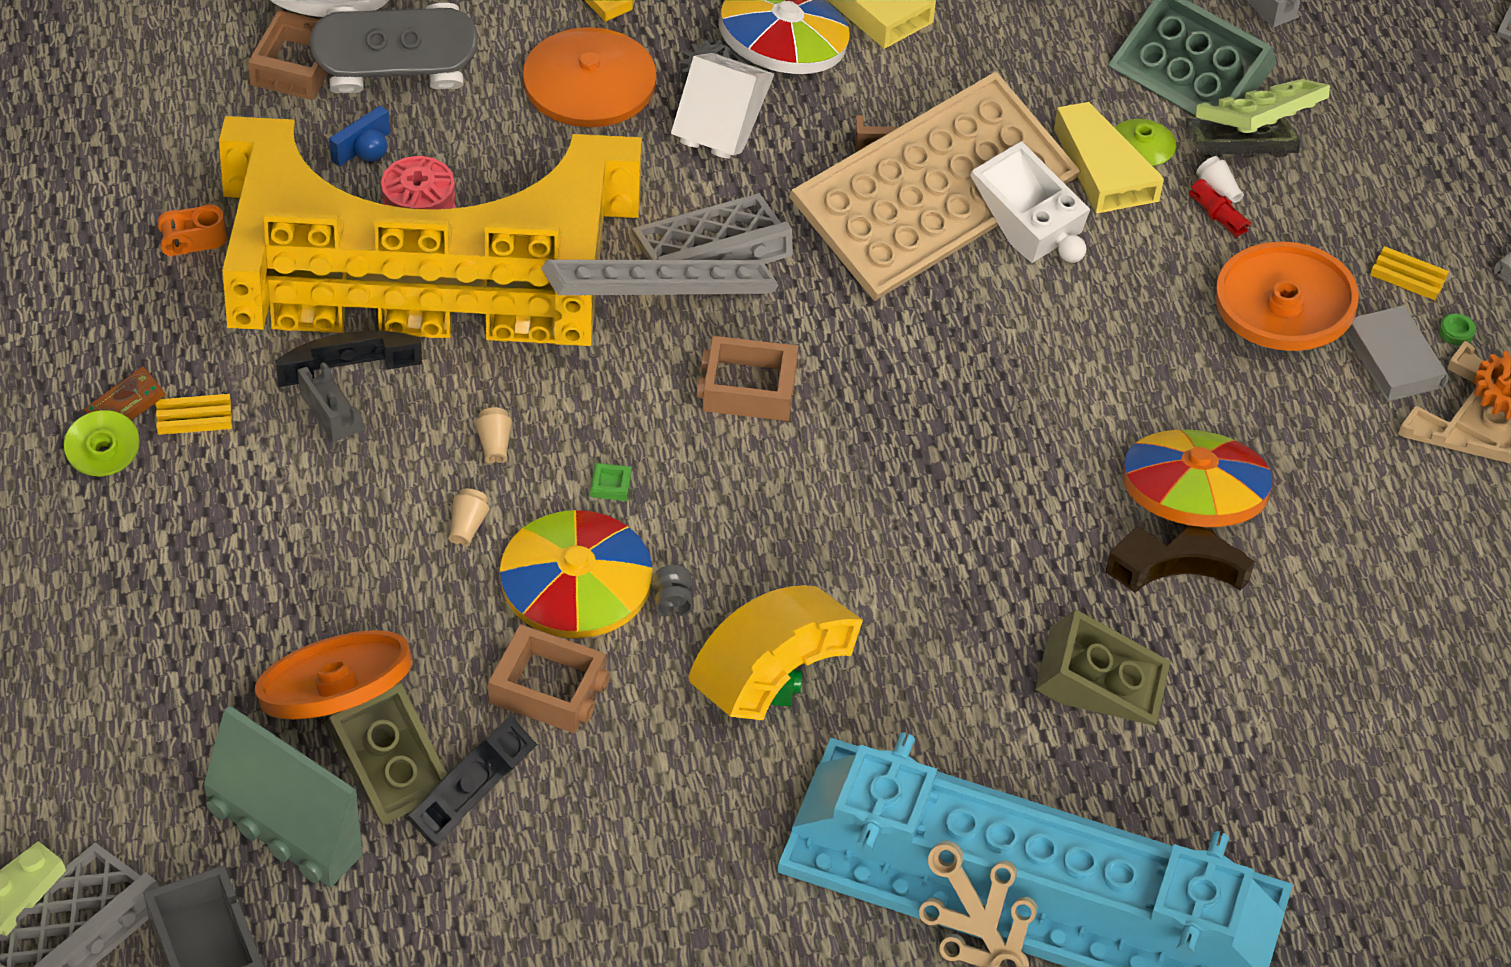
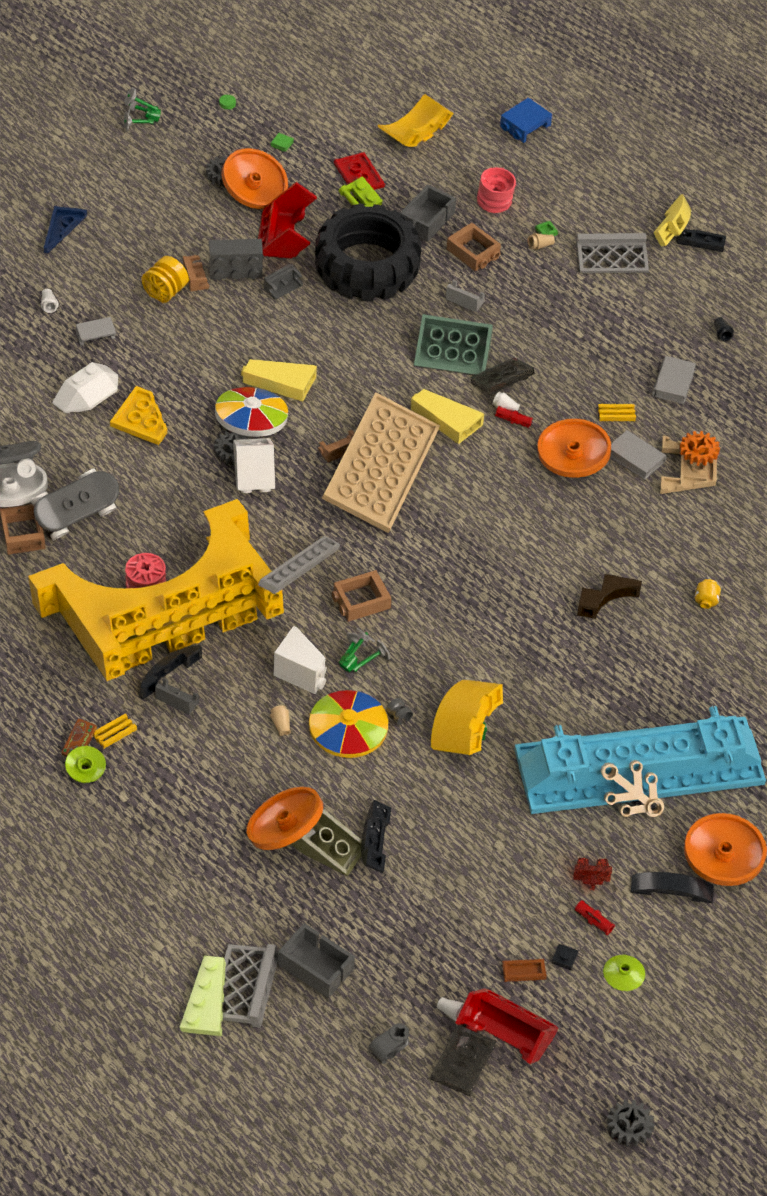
camera: 30 degrees left, 0 degrees up
(194, 228) = (42, 641): orange piece -> none
(283, 799) = (306, 882): sand green slope -> none
(362, 138) = (90, 558): blue tile -> none
(494, 433) = (263, 675): tan cone -> none
(507, 694) = (373, 791): medium nougat window -> none
(556, 434) = (300, 662): none -> white slope
(589, 77) = (173, 477): orange dish -> none
(610, 481) = (334, 674): bright green tile -> none
(650, 471) = (349, 660): none -> plant
(763, 244) = (316, 531): light grey fence -> none
(1032, 205) = (433, 453): white slope -> none
(1102, 670) = (607, 660): olive slope -> none
(1149, 139) = (458, 394): lime dish -> none
(1197, 478) = (591, 553): dish -> none
(1265, 106) = (504, 357): yellowish green wing -> none
(1367, 637) = (707, 593): none -> yellow head
(1457, 329) = (654, 431): bright green tile -> none

